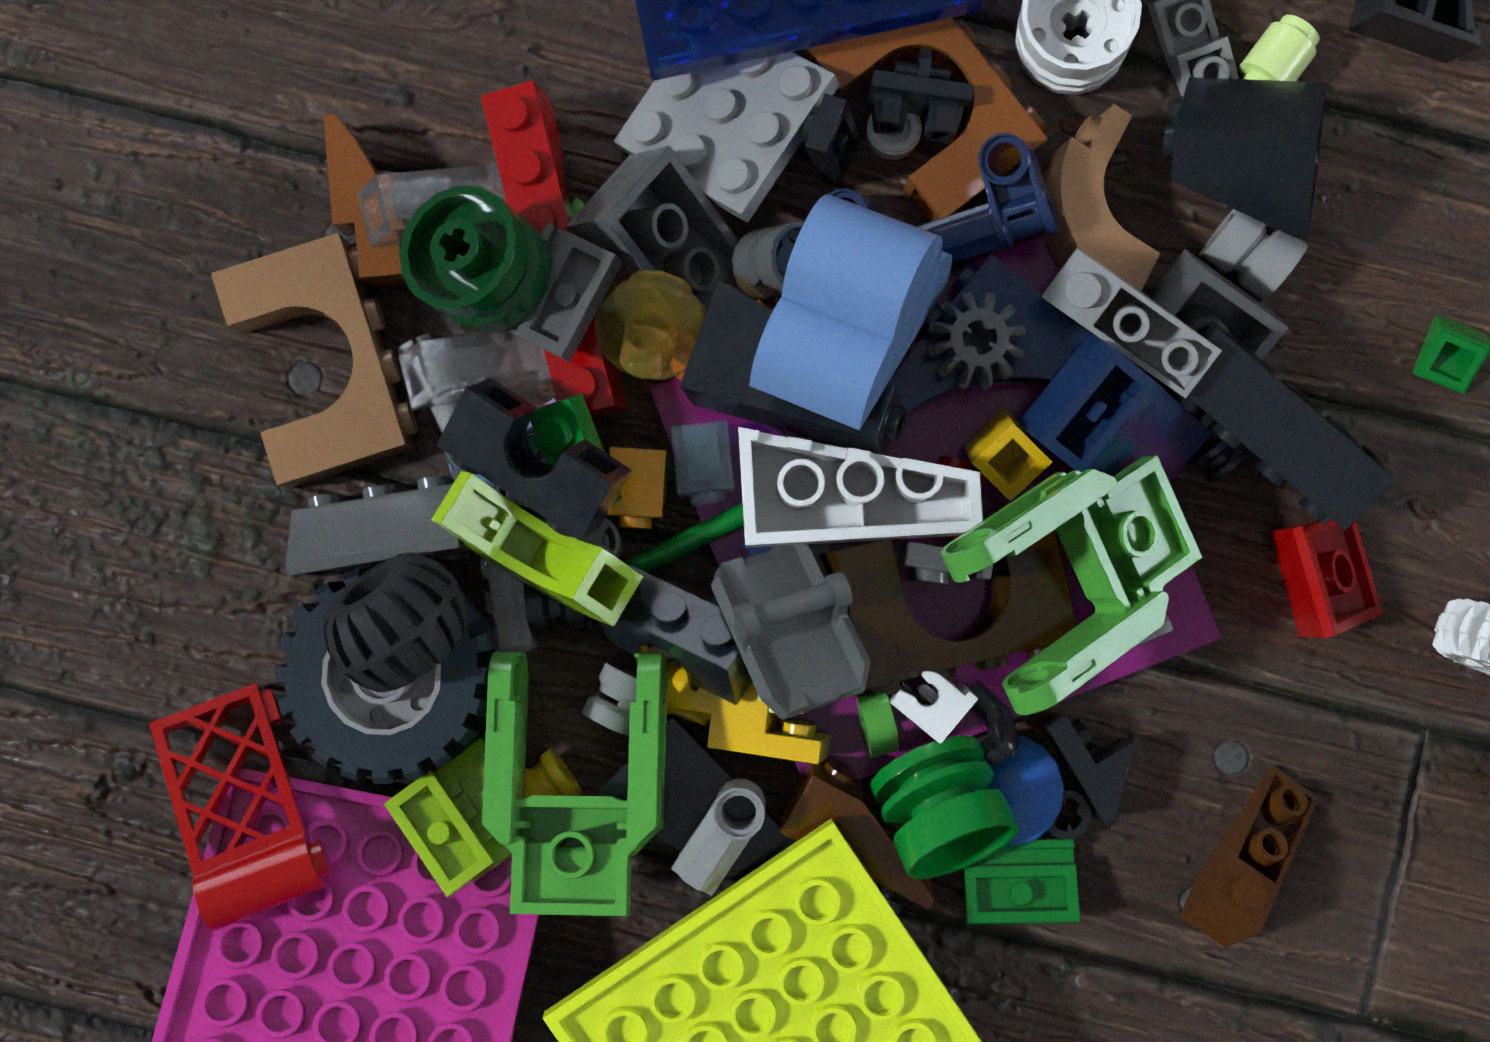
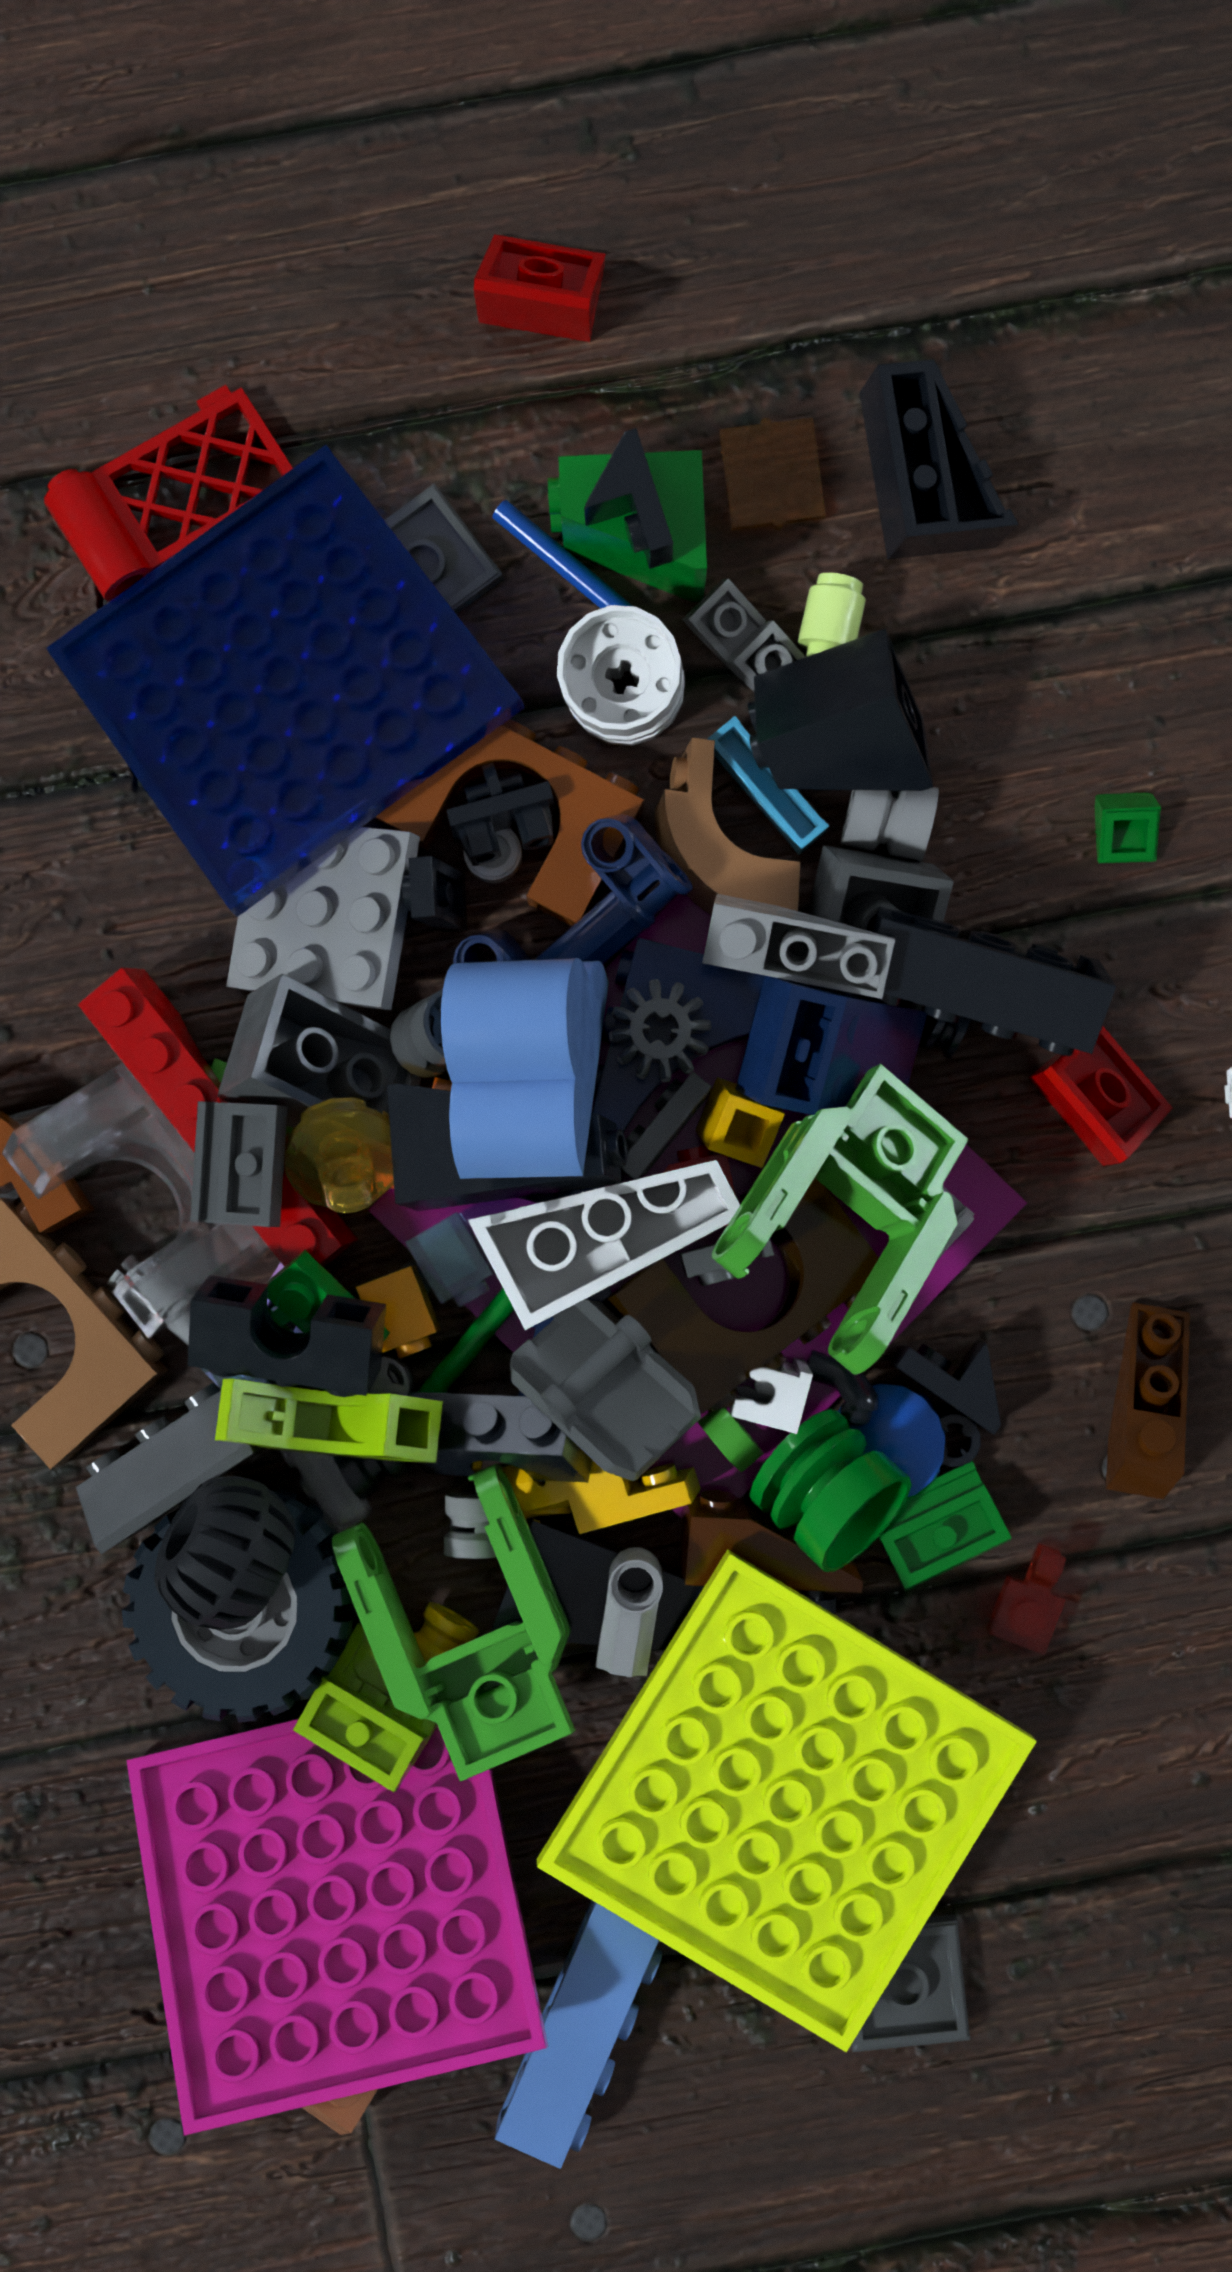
camera: 20 degrees left, 0 degrees up
(271, 866) = (209, 1843): red piece -> none
(475, 259) = (144, 1171): dark green wheel -> none
(956, 418) = (676, 1108): none -> dark grey plate
(1064, 989) = (1028, 1608): none -> clear red plate
(1161, 197) = (782, 807): none -> medium azure piece

